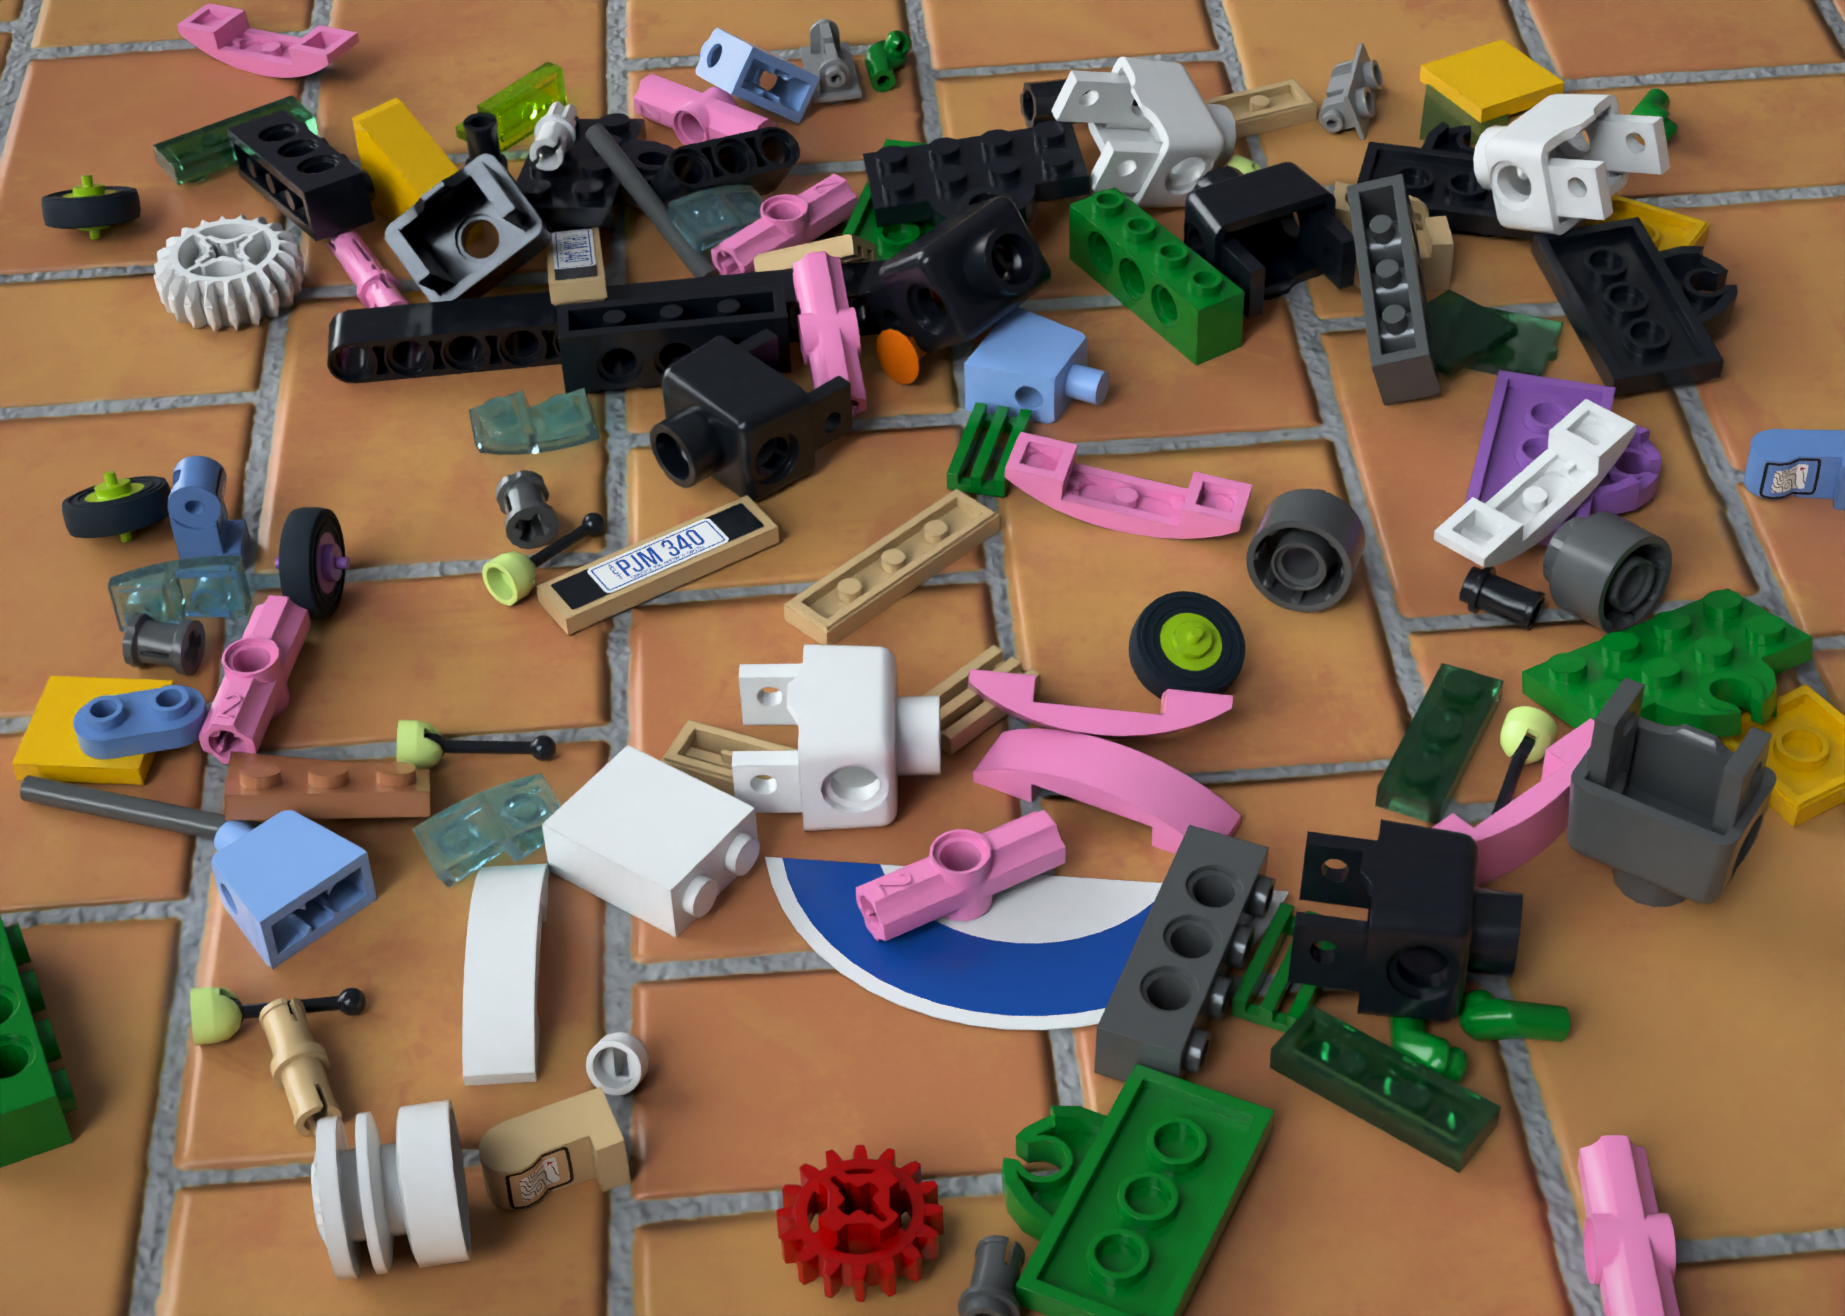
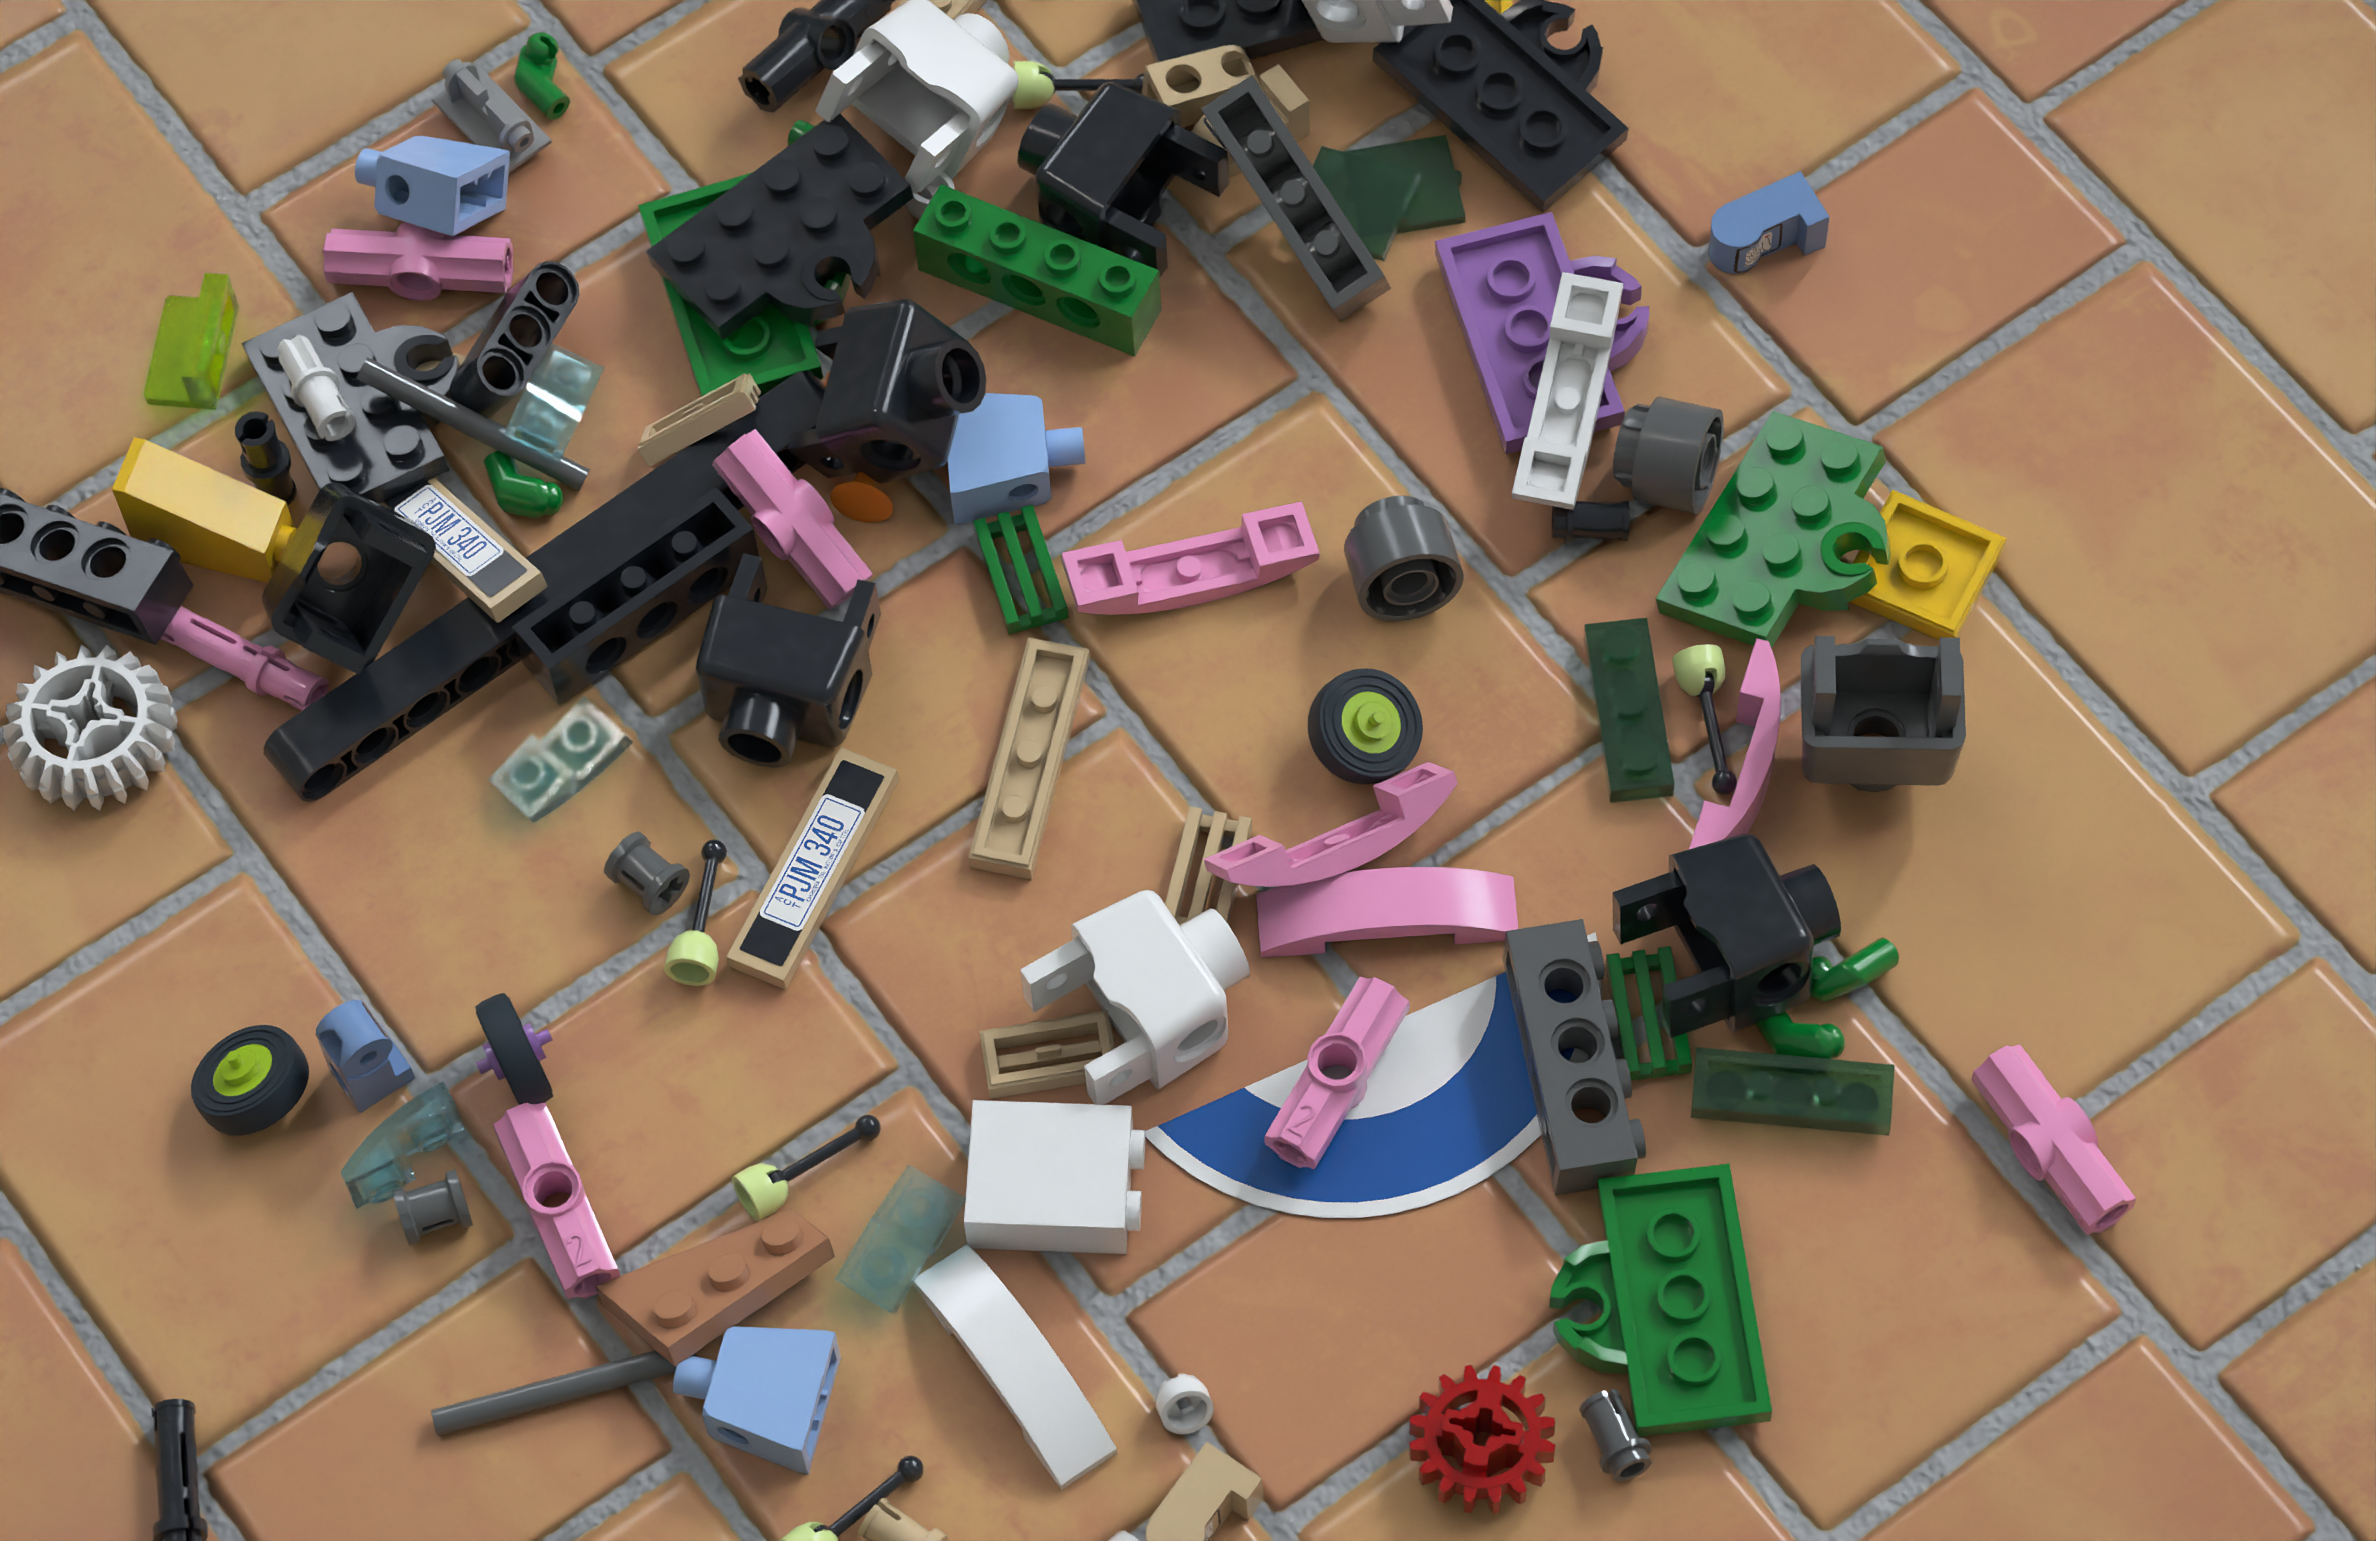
camera: 30 degrees left, 20 degrees up
(51, 743) = (443, 1329): yellow tile -> none
(140, 722) = (501, 1305): medium blue plate -> none
(655, 262) = (520, 493): none -> green arm
(786, 223) = (620, 412): bright pink piece -> none

